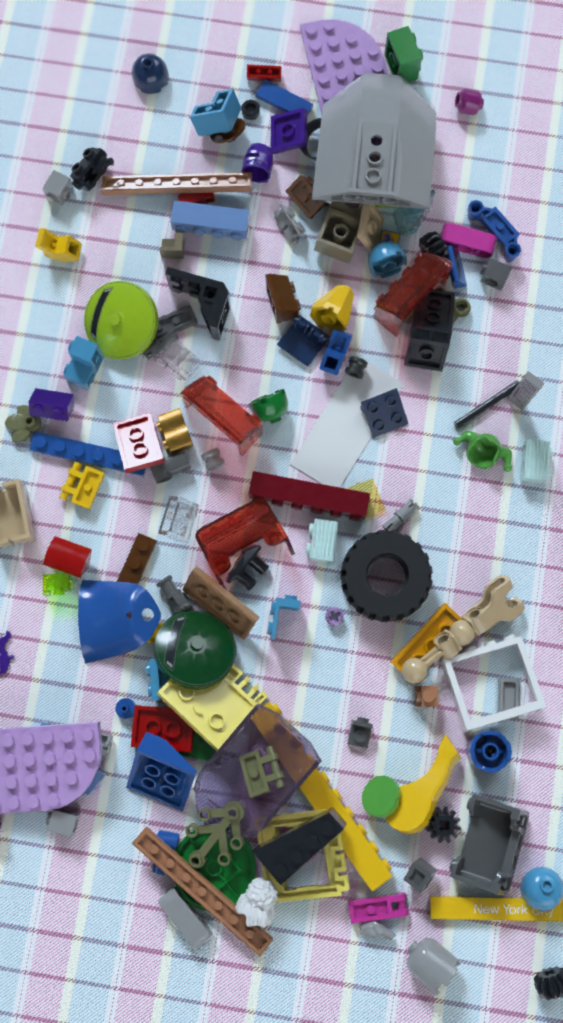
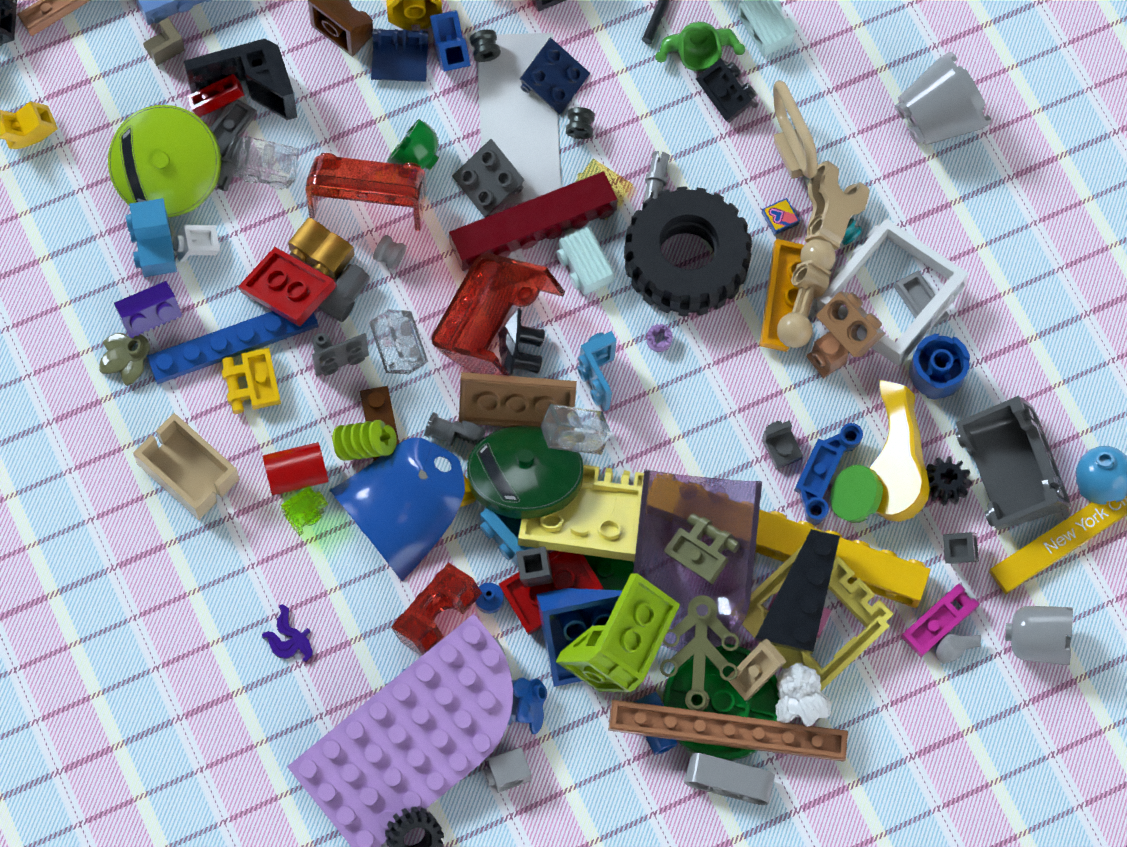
camera: 40 degrees left, 10 degrees down
(71, 698) = (447, 590): none -> clear red arch
(103, 788) = (531, 699): none -> blue plate
(108, 380) = (196, 241): none -> white bracket
(115, 567) = (363, 440): none -> lime piece
(131, 502) = (329, 357): none -> dark grey hinge
(156, 715) = (534, 567): none -> dark grey brick
(176, 802) = (621, 652): none -> lime bracket
(178, 298) = (215, 95): none -> red piece
(241, 644) = (575, 429): none -> clear brick
(242, 869) = (757, 669): none -> tan plate
(301, 451) = (488, 178): none -> dark grey hinge
(372, 764) = (821, 469): none -> blue plate
(379, 452) = (580, 123): none -> pearl dark grey wheel
(444, 692) = (846, 329): none -> medium nougat brick
(459, 588) = (780, 216): none -> tile
(483, 488) = (726, 89): none -> black bracket
(495, 630) = (852, 232): none -> teal bush
(499, 546) = (797, 144): none -> tan bar

